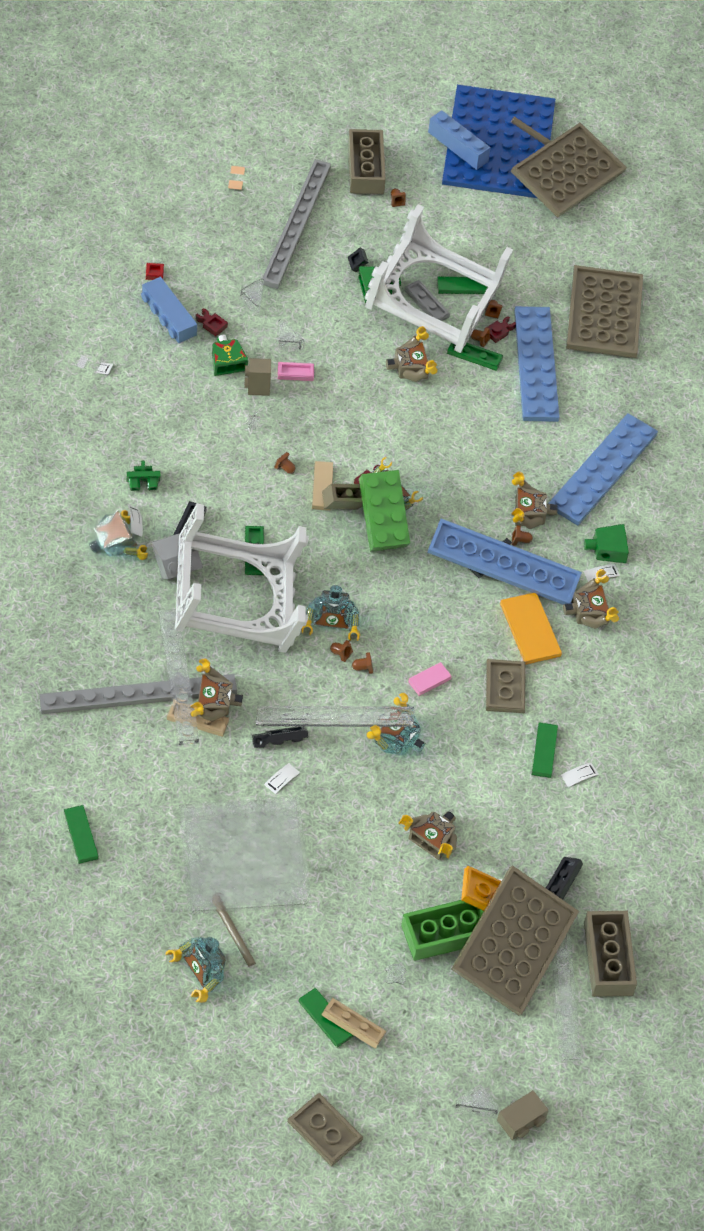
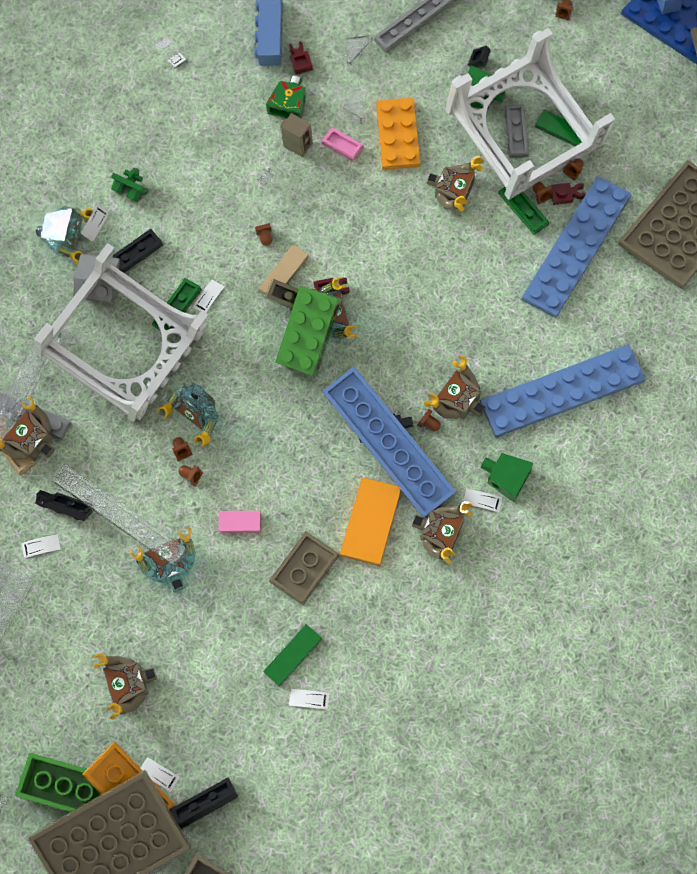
camera: 45 degrees right, 15 degrees up
(274, 531) = (208, 296): none -> white sticker
(334, 344) = (398, 133): none -> light orange plate

